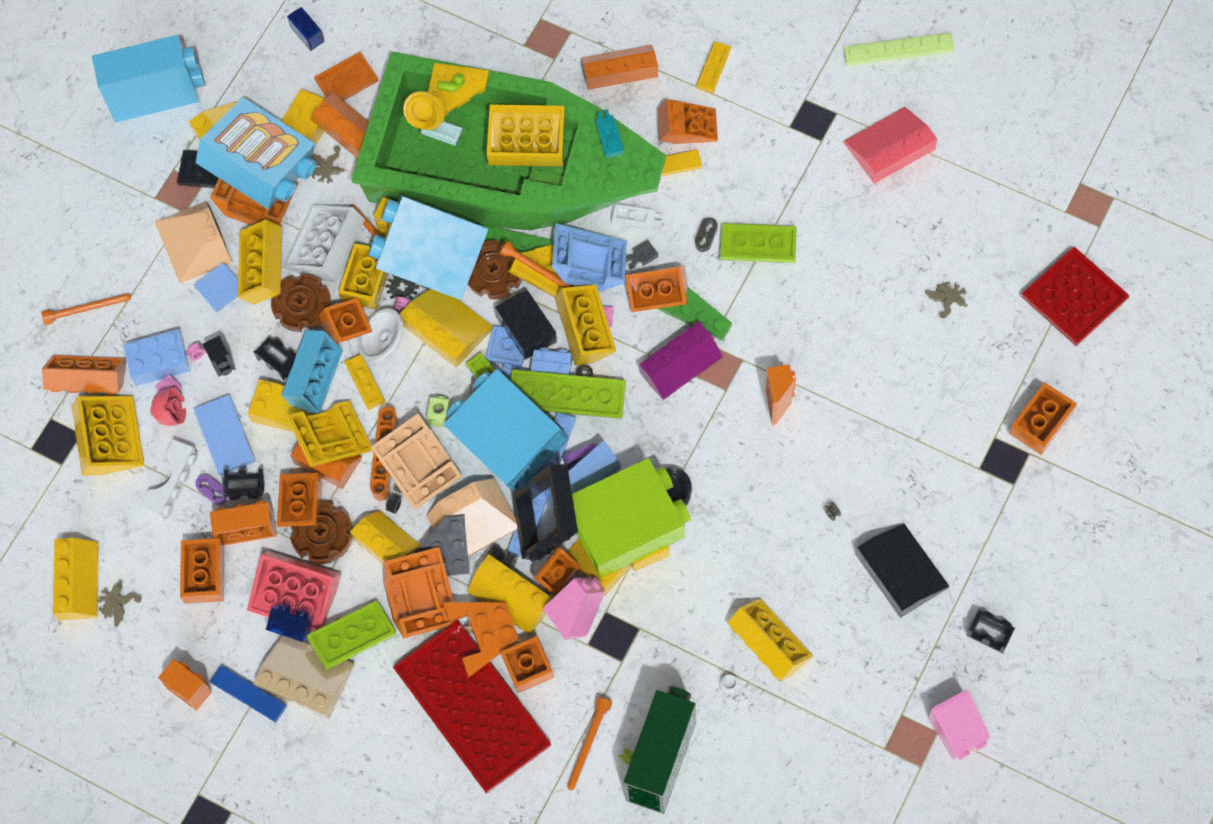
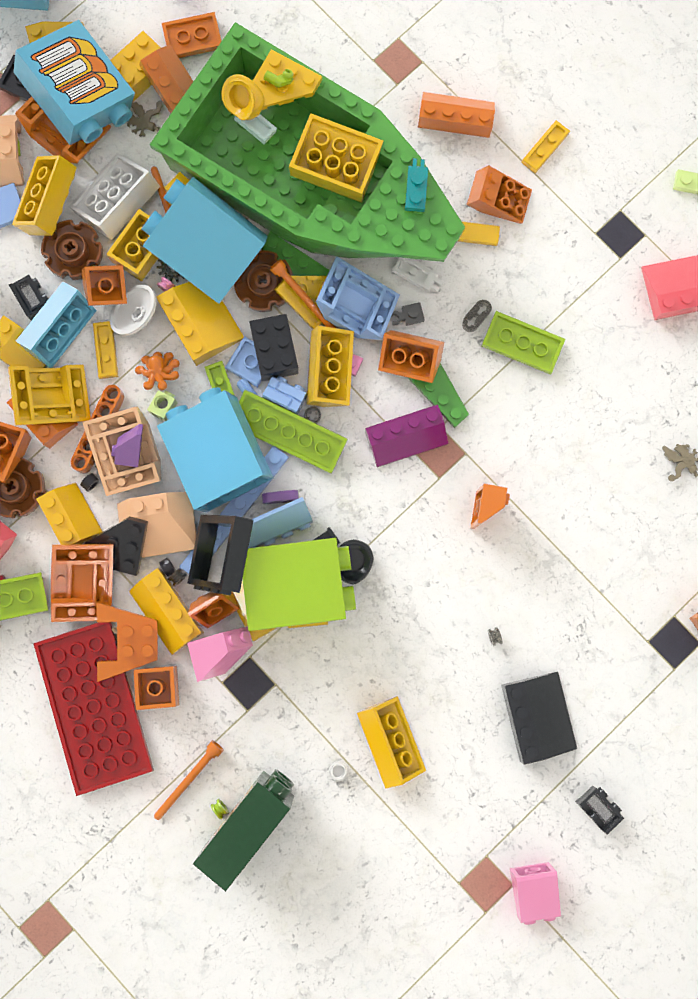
camera: 10 degrees right, 15 degrees up
(422, 380) = (158, 370): none -> orange animal
(422, 454) = (128, 447): none -> medium lavender slope

